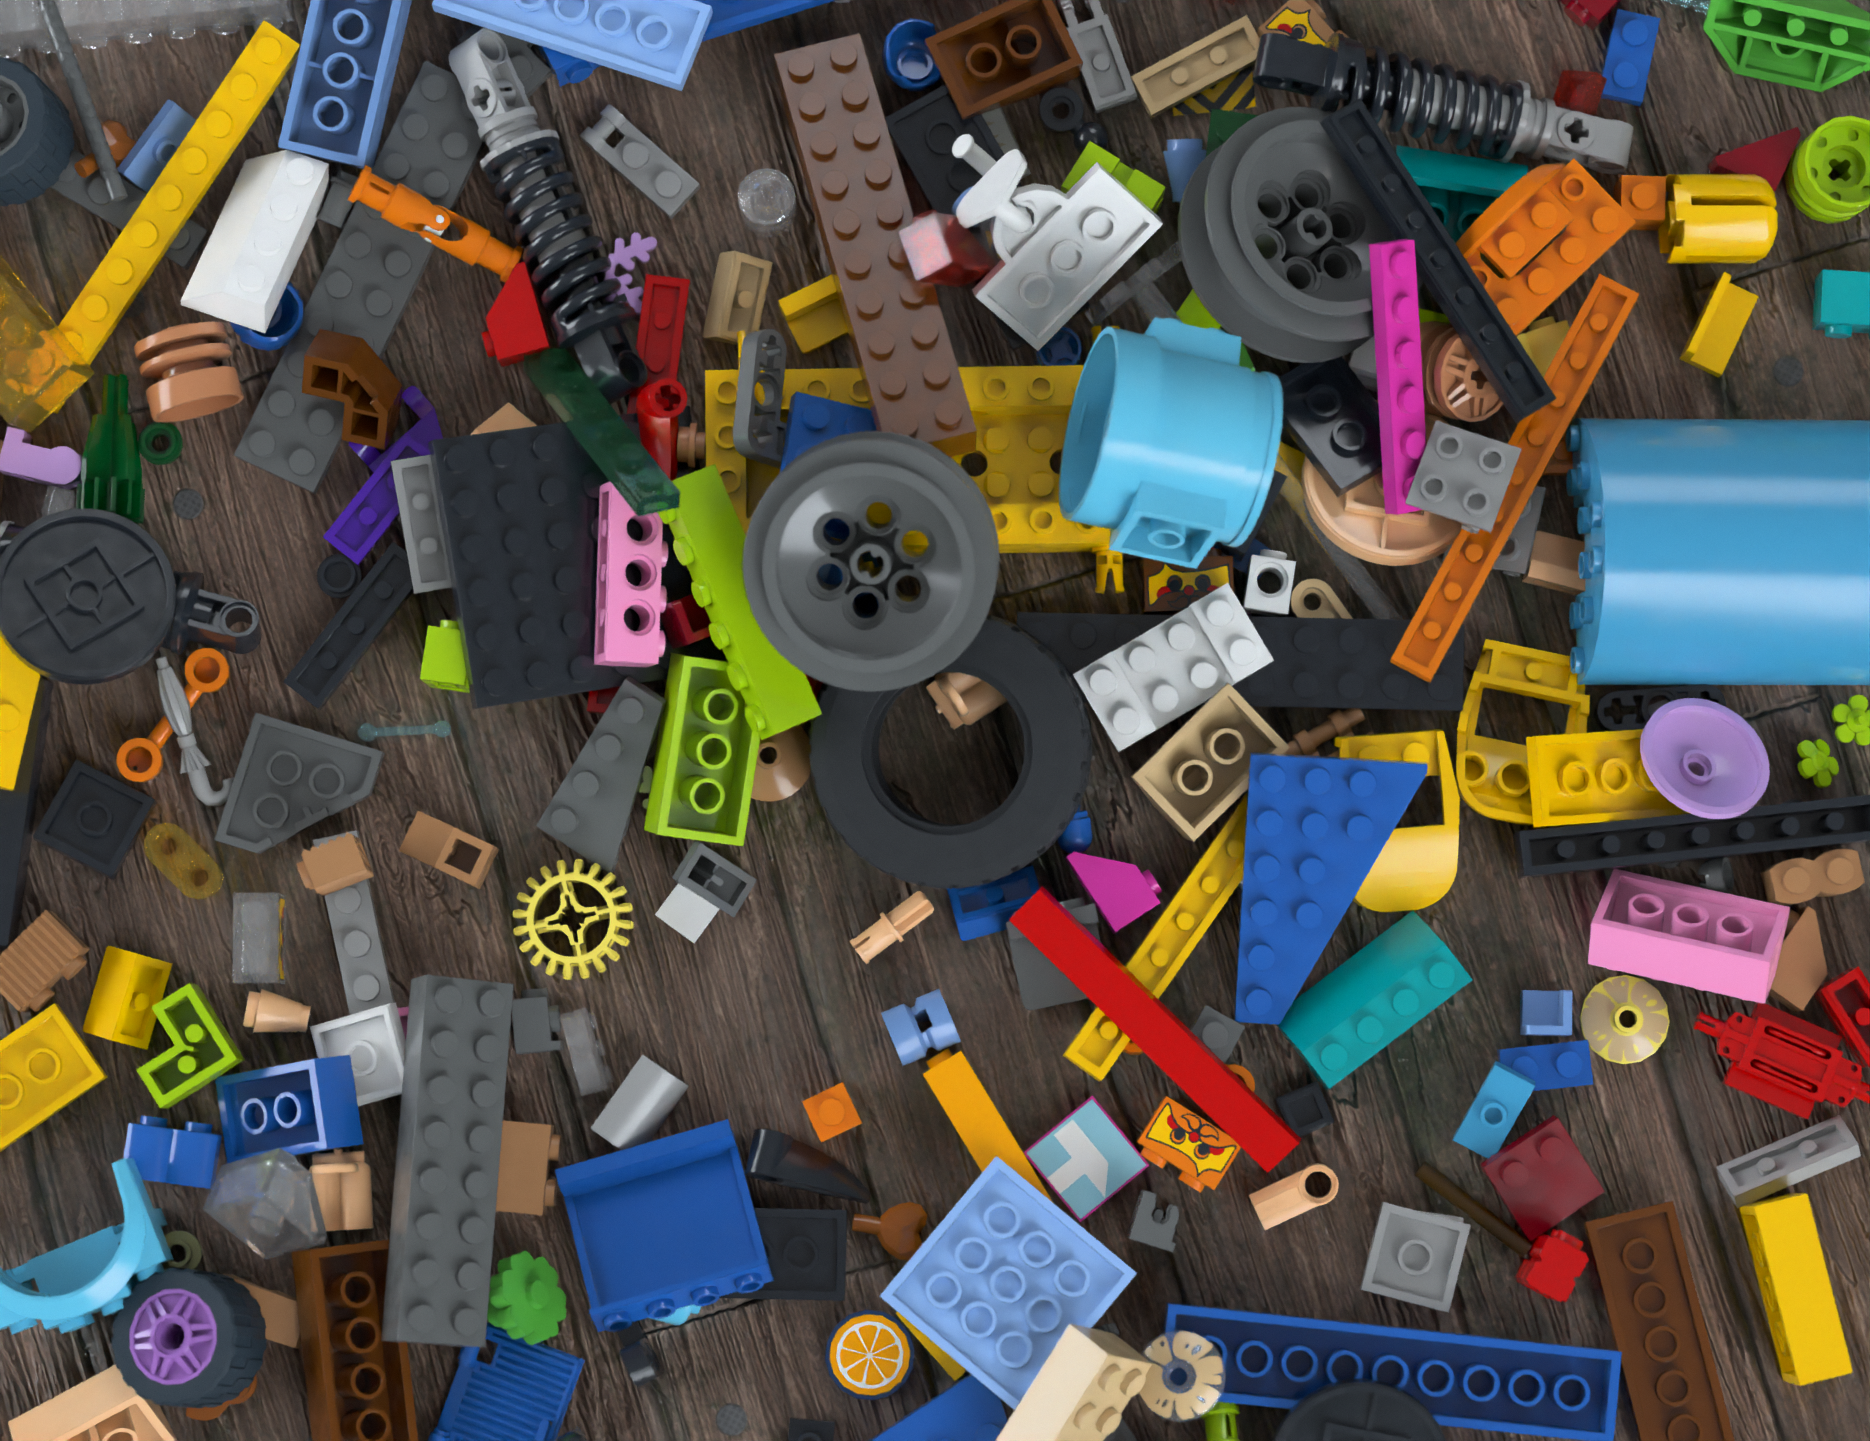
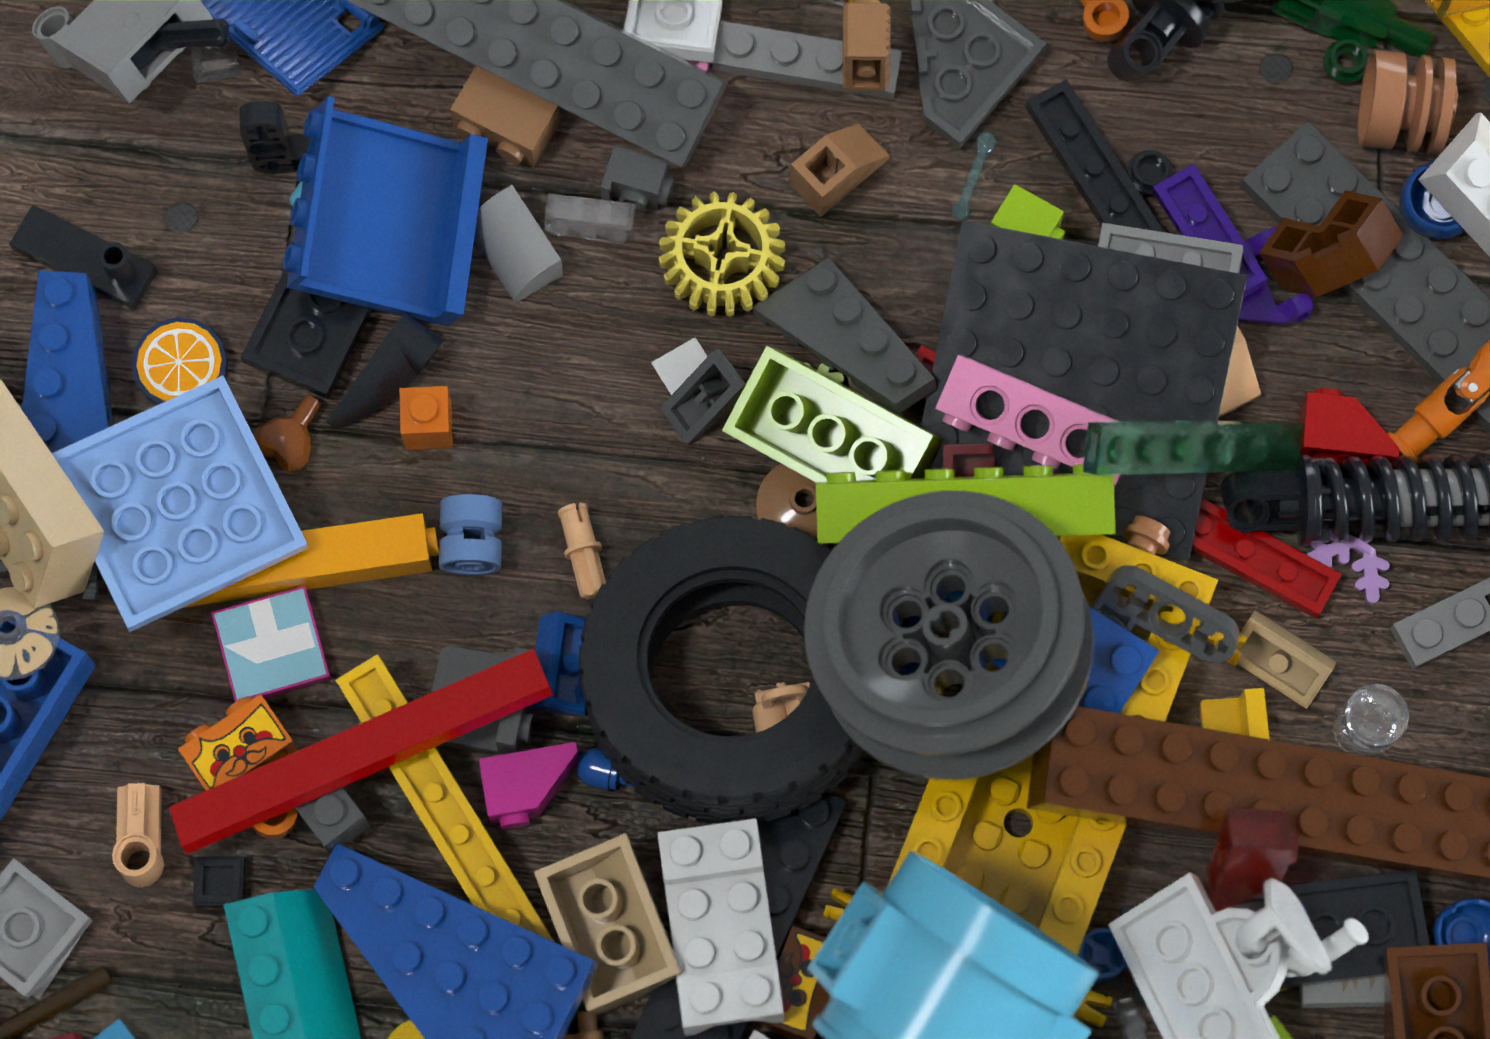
camera: 110 degrees right, 10 degrees down
(526, 1298) = (378, 68): bright green plant -> none
(659, 425) = (1168, 509): red piece -> none
(1153, 1230) = (170, 669): dark grey hinge -> none

